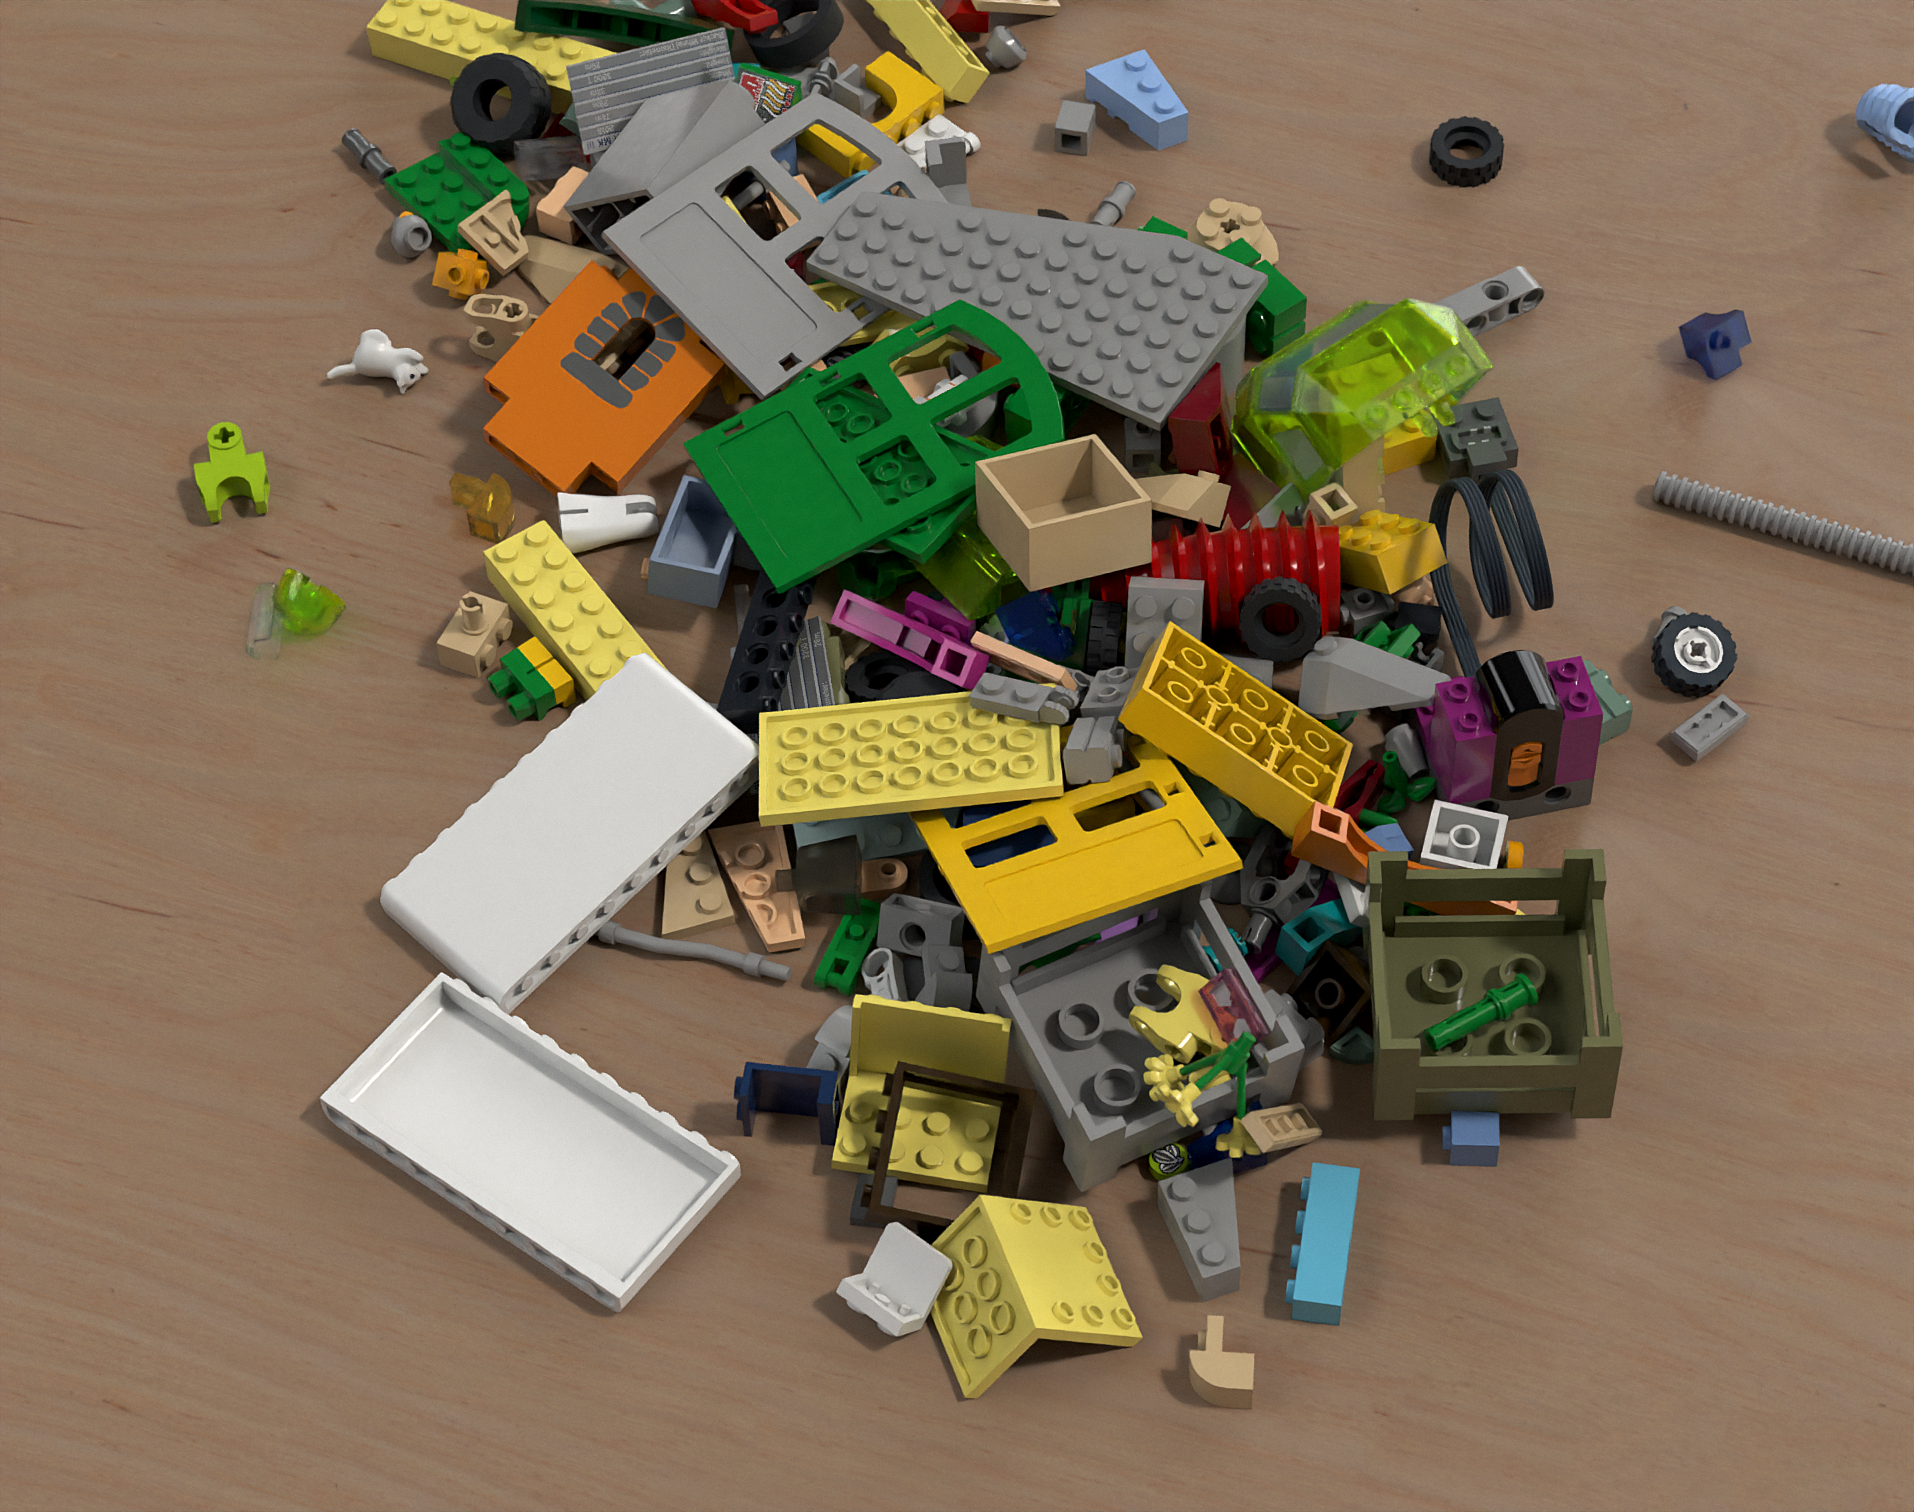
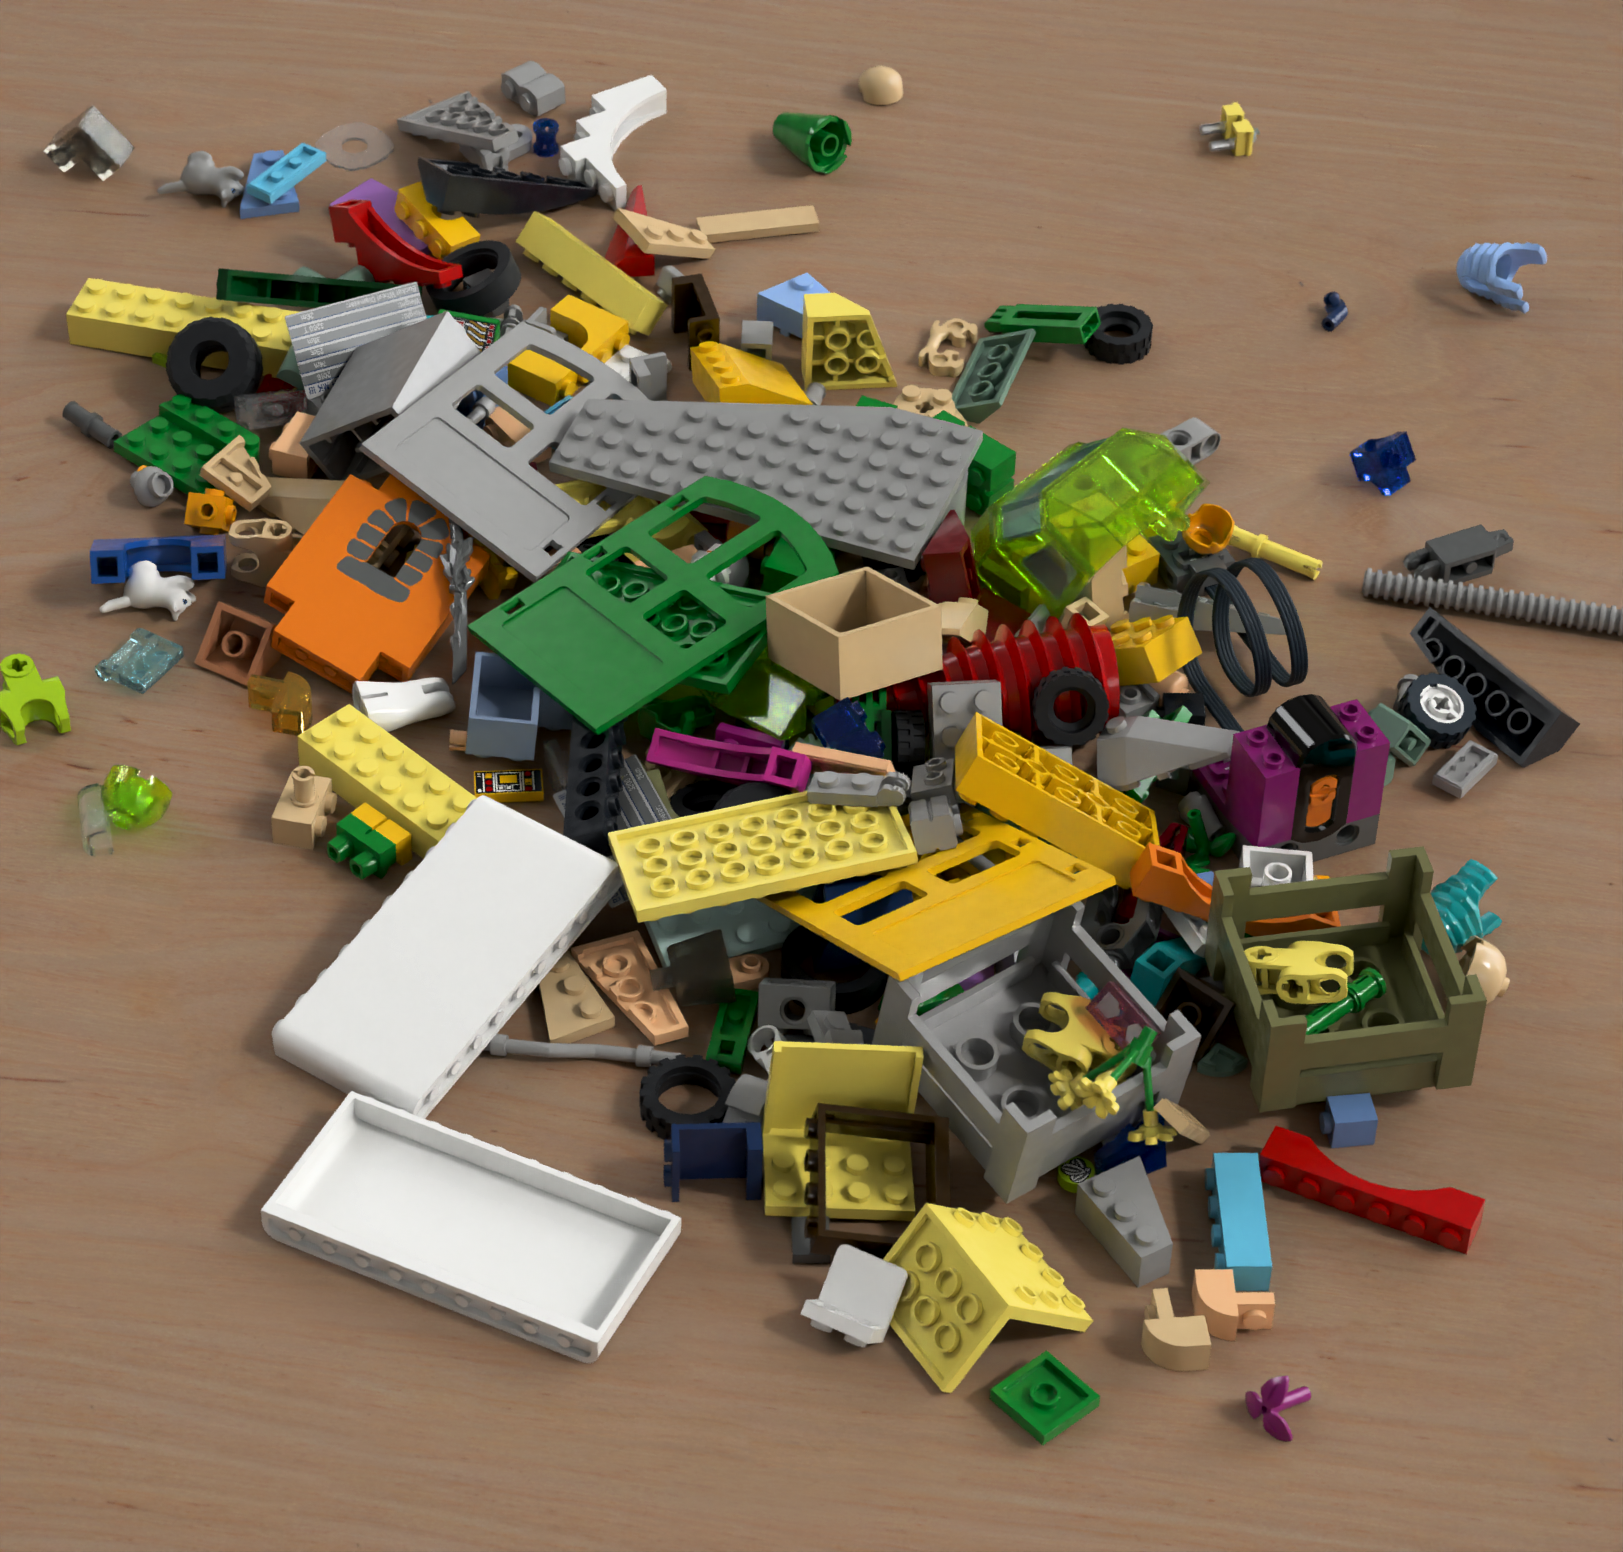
camera: 15 degrees left, 10 degrees down
(358, 445) = (146, 666): none -> clear light blue plate
(437, 324) = (201, 555): none -> blue arch
(453, 431) = (238, 644): none -> nougat slope
(685, 391) = (458, 575): none -> dark grey sword
(692, 628) = (510, 785): none -> tile
(773, 990) = (680, 1072): none -> black tyre
(1013, 97) = (694, 311): none -> dark brown panel
(1050, 176) = (741, 377): none -> yellow slope
(1068, 1421) = (1044, 1397): none -> green plate
(1157, 144) = (841, 345): none -> light yellow wedge
(1276, 168) = (947, 362): none -> tan helmet
(1279, 1344) = (1225, 1309): none -> light nougat brick
(1307, 1460) = (1275, 1399): none -> magenta plant
(1314, 188) = (990, 374): none -> sand green slope
(1387, 133) = (1050, 322): none -> green hinge
(1414, 497) = (1159, 602): none -> light grey wedge
(1444, 967) = (1299, 969): none -> light yellow piece
(1491, 412) = (1209, 529): none -> light orange hair
(1539, 1265) = (1436, 1215): none -> red arch
(1557, 431) = (1261, 547): none -> light yellow pin
(1638, 681) = (1405, 738): none -> sand green brick
(1641, 906) = (1459, 904): none -> teal hair
(1654, 983) = (1488, 964): none -> tan cylinder
(1714, 146) = (1336, 311): none -> dark blue arm
(1770, 465) = (1460, 555): none -> dark grey hinge
(1774, 654) = (1507, 706): none -> black wedge

